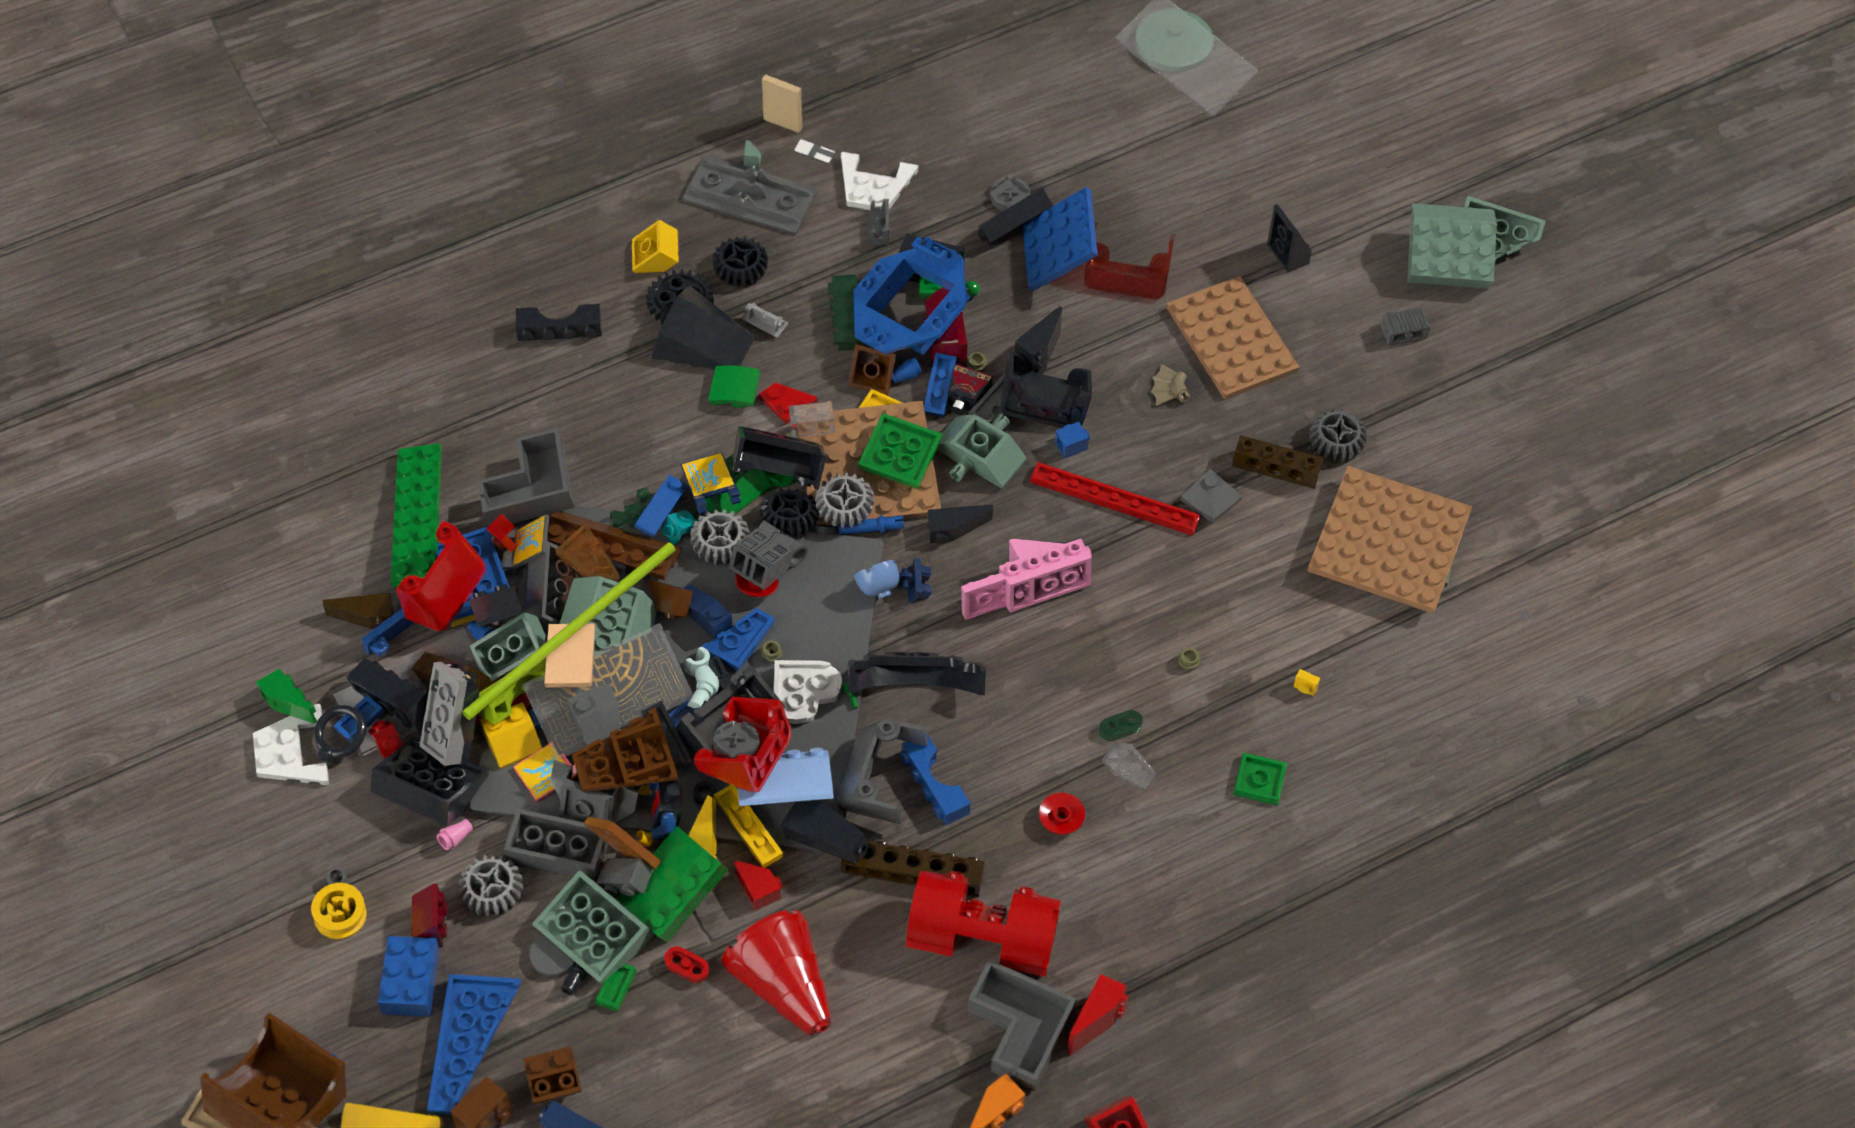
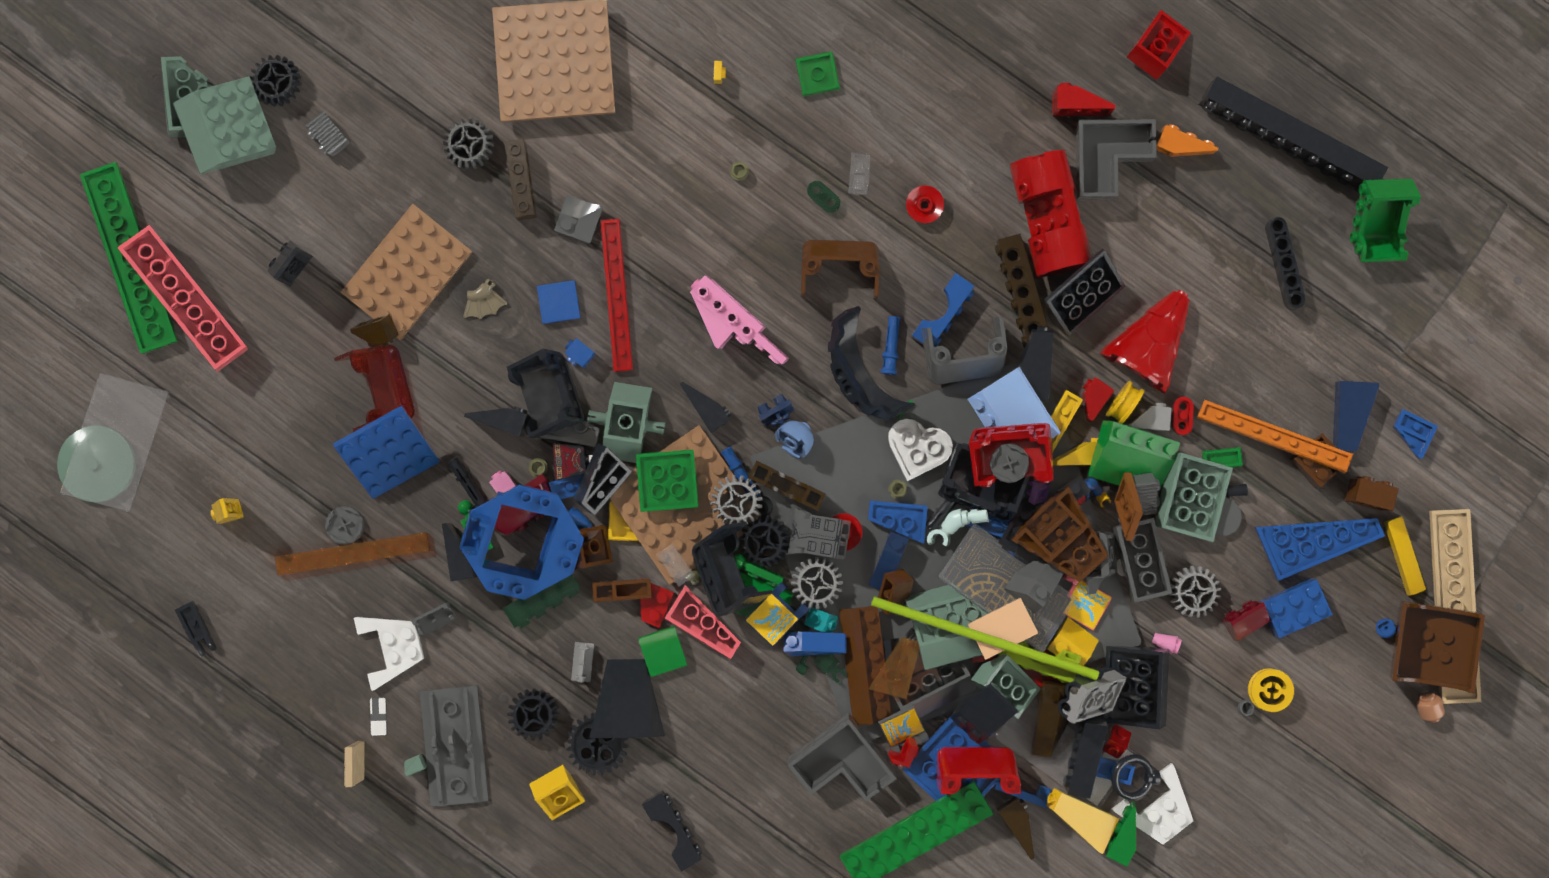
camera: 110 degrees left, 30 degrees up
(212, 1062) = (1430, 707): none -> nougat head
(327, 666) = (1086, 820): none -> yellow slope
(606, 1039) = (1275, 436): none -> orange tile
(689, 775) = (1038, 492): none -> medium lavender tile
(700, 931) = (1153, 418): none -> light grey slope
(720, 430) = (699, 622): none -> coral wedge
(735, 903) = (1125, 402): none -> yellow wheel
(752, 504) = (772, 578): none -> green plate
(815, 375) = (621, 590): none -> reddish brown slope
(853, 538) = (787, 485): none -> dark brown arch
(879, 912) = (1084, 293): none -> black slope
(916, 710) = (890, 355): none -> blue pin
(934, 400) = (600, 480): none -> black wedge
(976, 326) = (502, 481): none -> bright pink brick
(979, 51) = (195, 627): none -> black hinge
(980, 188) = (352, 553): none -> clear orange tile
(992, 300) = (467, 483): none -> black pin
(1014, 216) = (373, 505): black slope -> none
(1038, 728) = (863, 251): none -> reddish brown windscreen
(1075, 106) = (226, 510): none -> yellow slope
(1134, 446) = (558, 302): none -> blue tile
(1184, 284) = (376, 331): none -> dark brown slope
(1295, 149) = (182, 298): none -> coral brick
(1359, 132) = (116, 225): none -> green plate
(1493, 306) = (291, 78): none -> black gear

